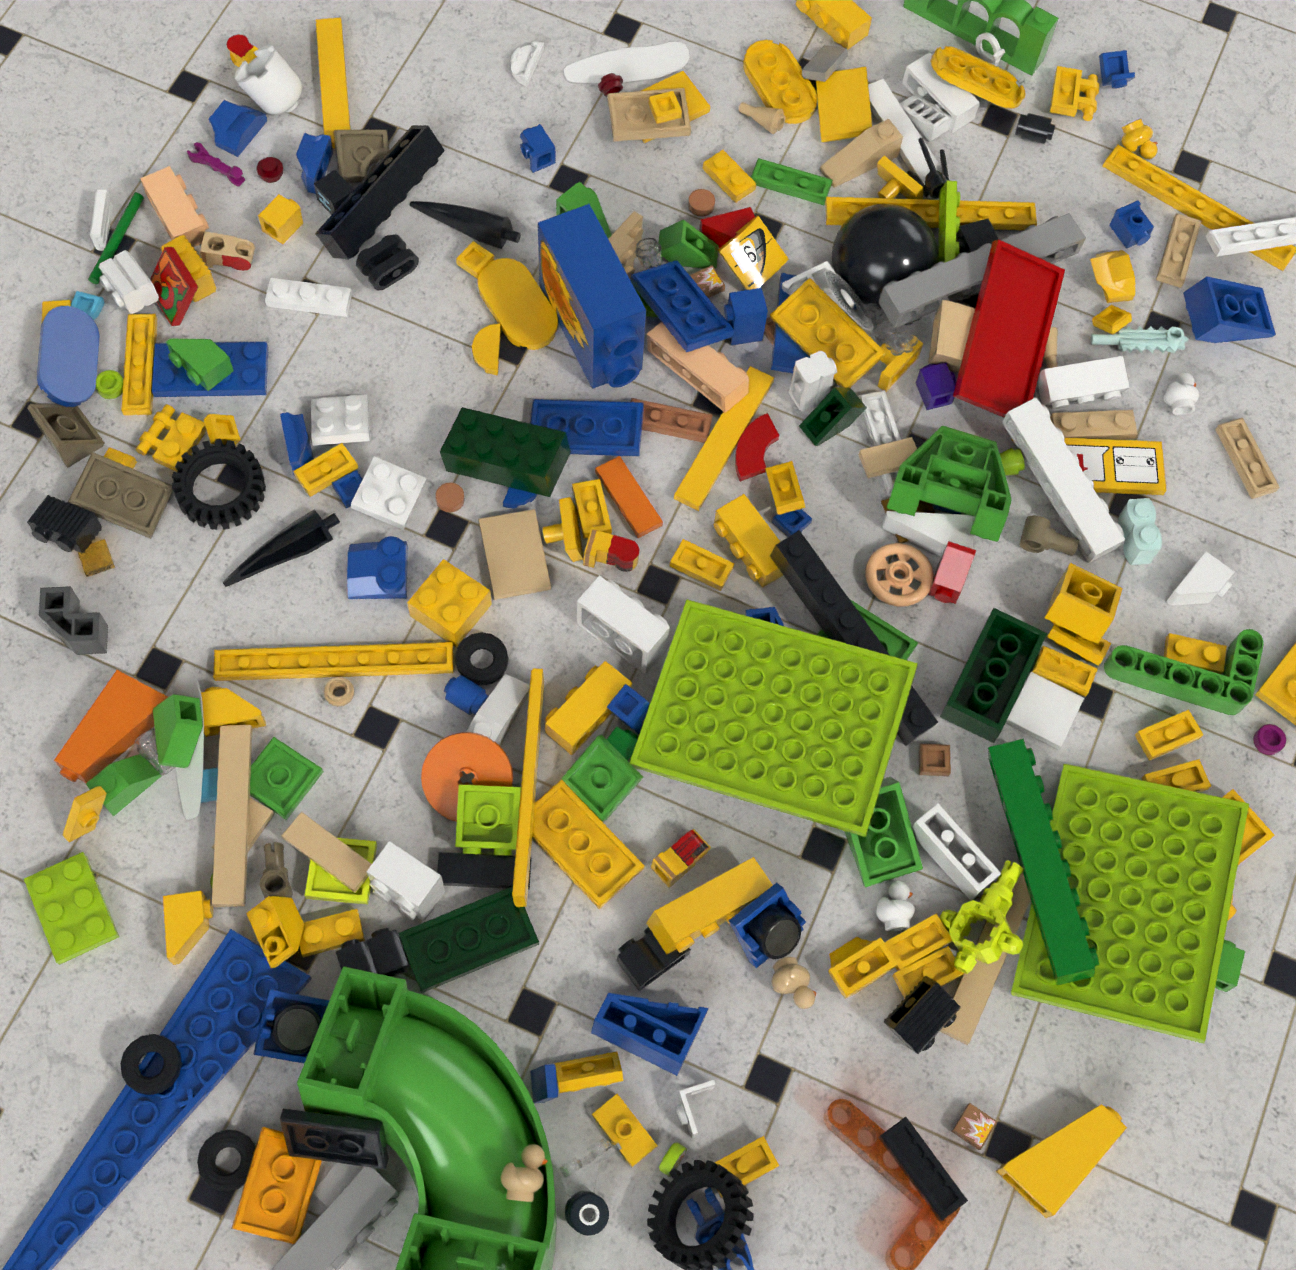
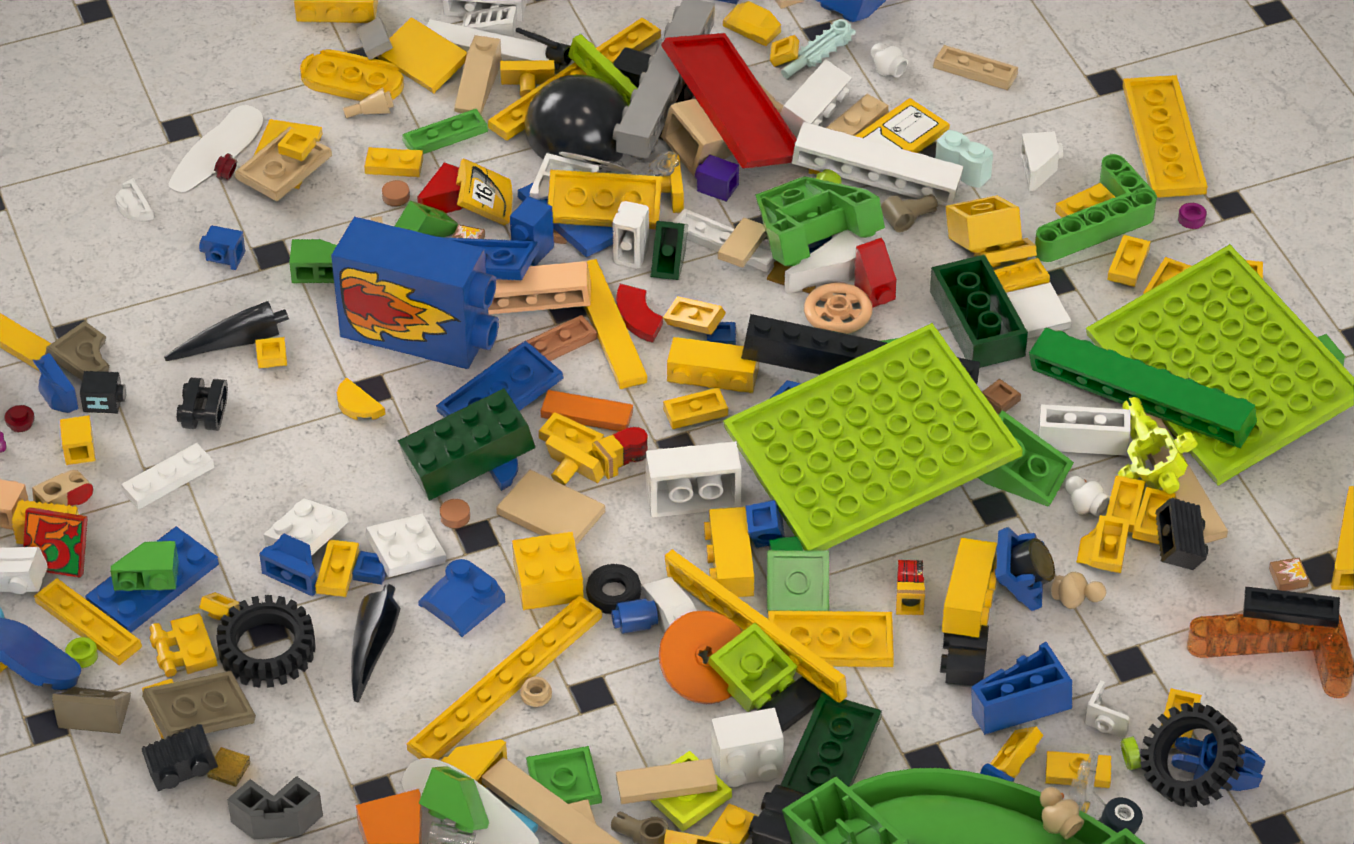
camera: 40 degrees left, 20 degrees down
(380, 192) = (140, 361): black brick -> none
(518, 303) = (341, 355): yellow tile -> none

